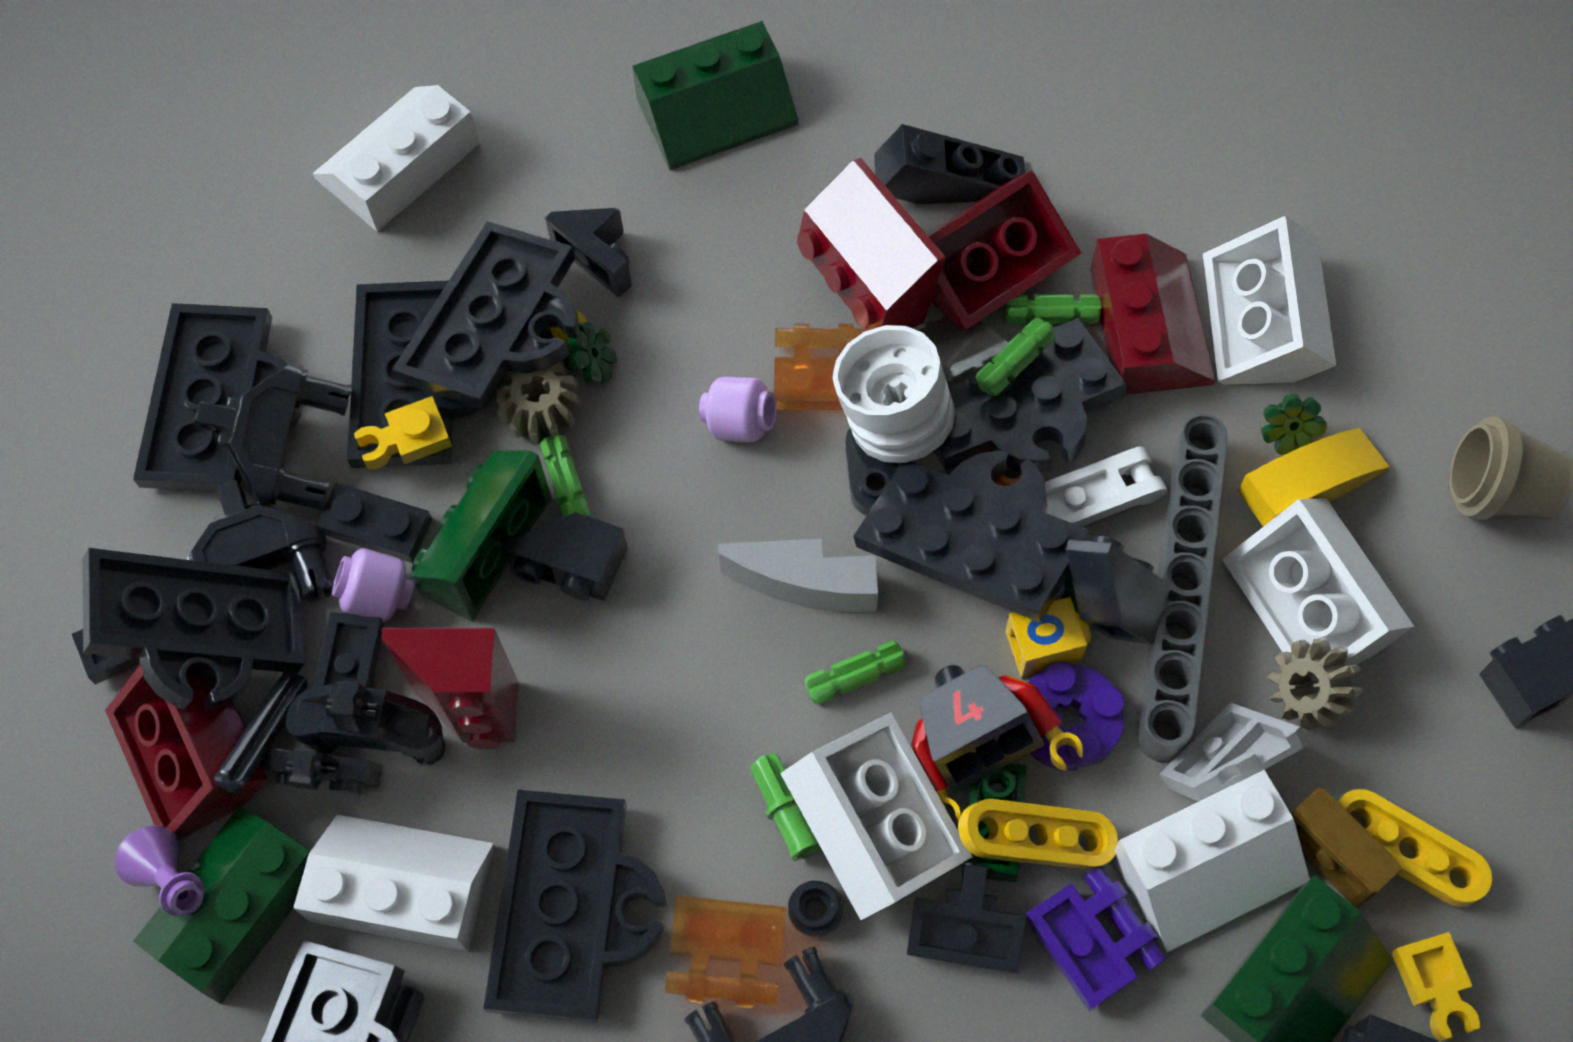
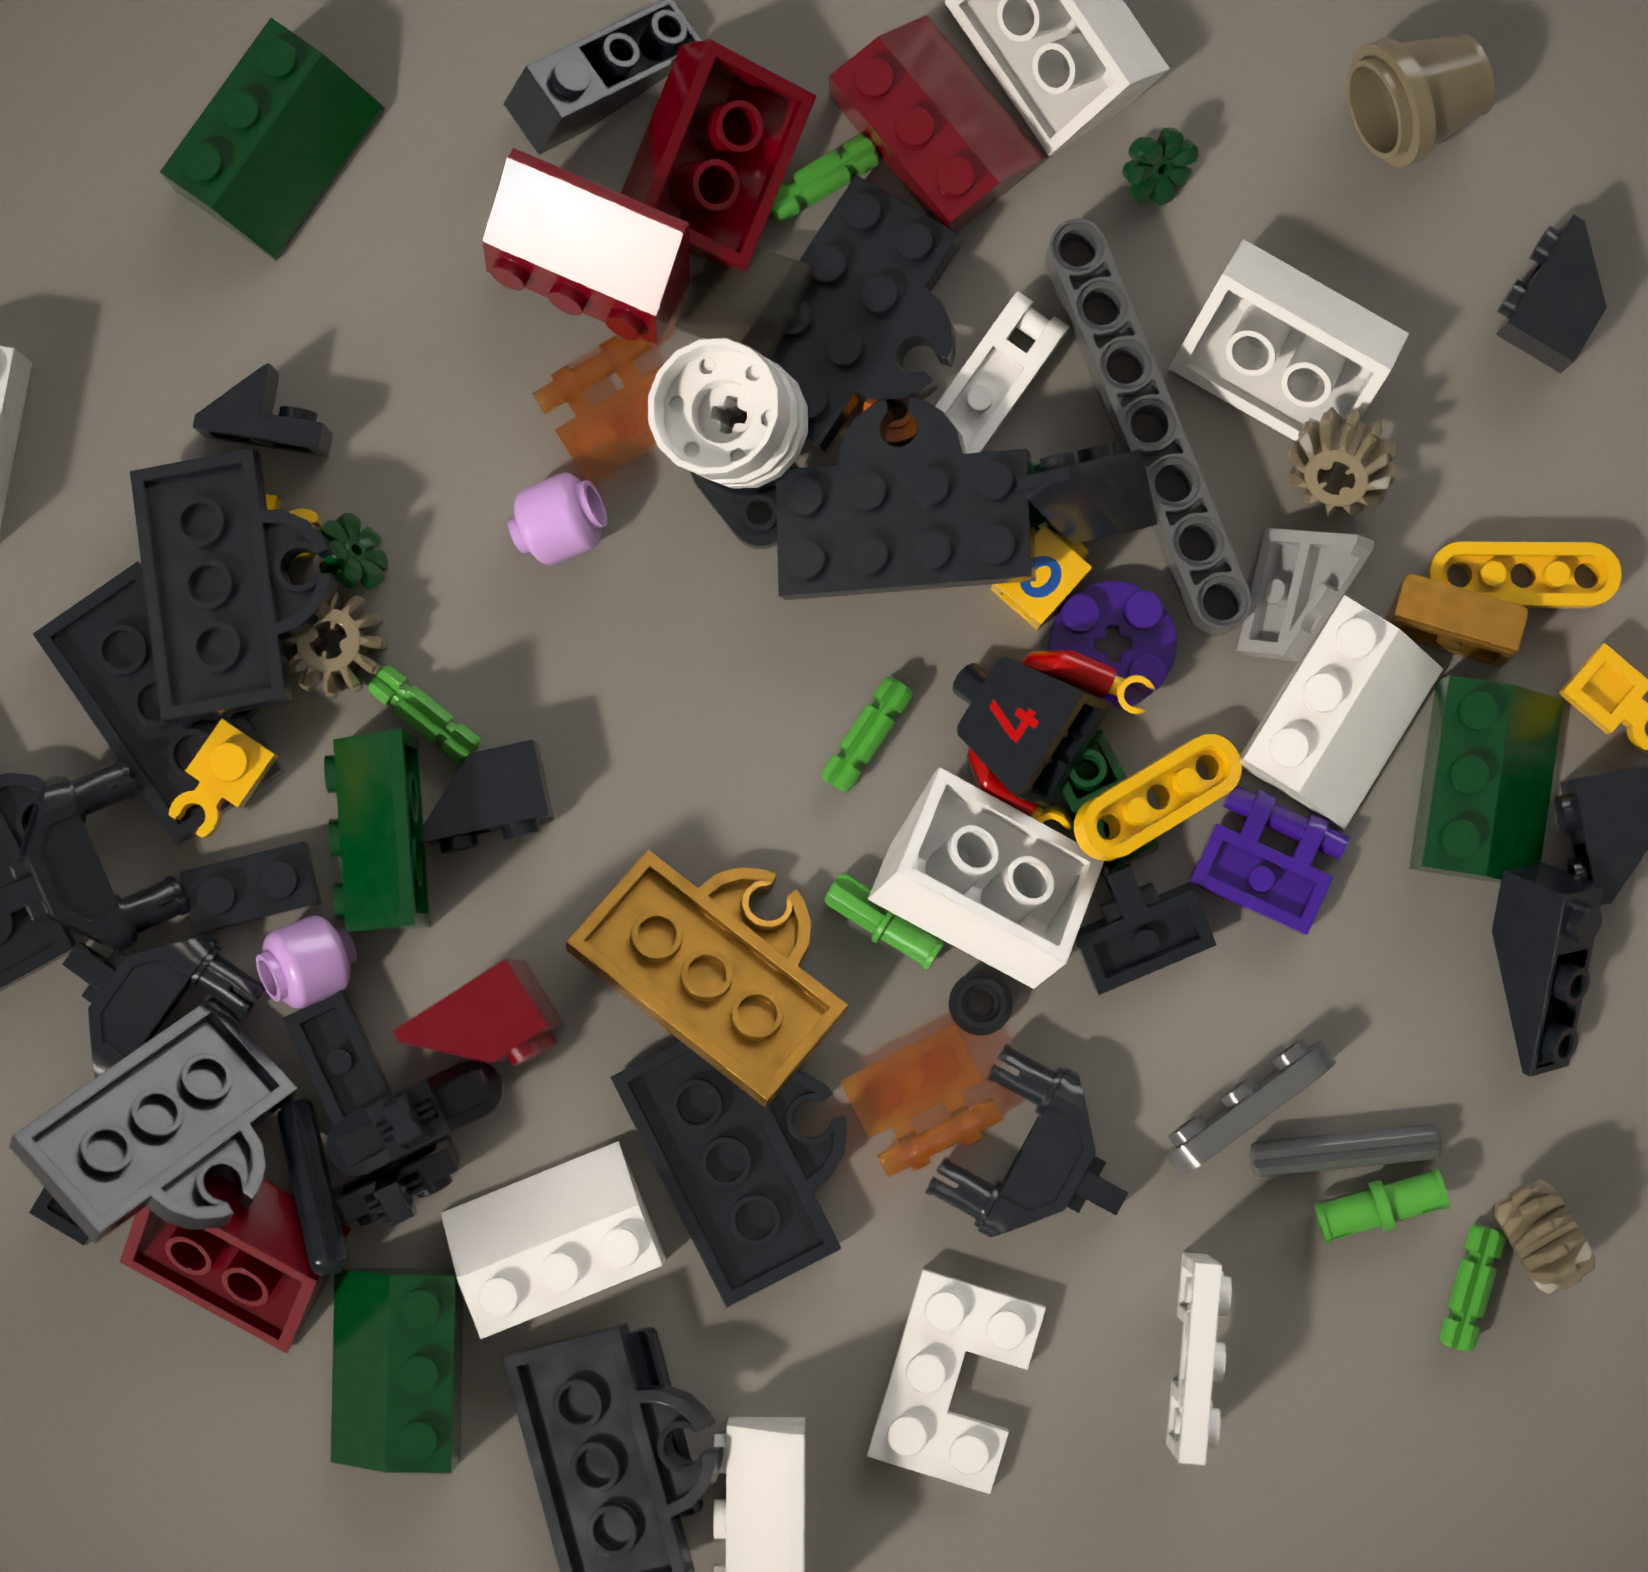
camera: 30 degrees left, 20 degrees up
(151, 859) = (294, 1379): medium lavender piece -> none
(641, 760) = (713, 969): none -> pearl gold plate
(800, 574) = (748, 665): light grey slope -> none
(1015, 357) = (824, 277): bright green axle -> none
(1312, 472) = (1214, 216): yellow slope -> none

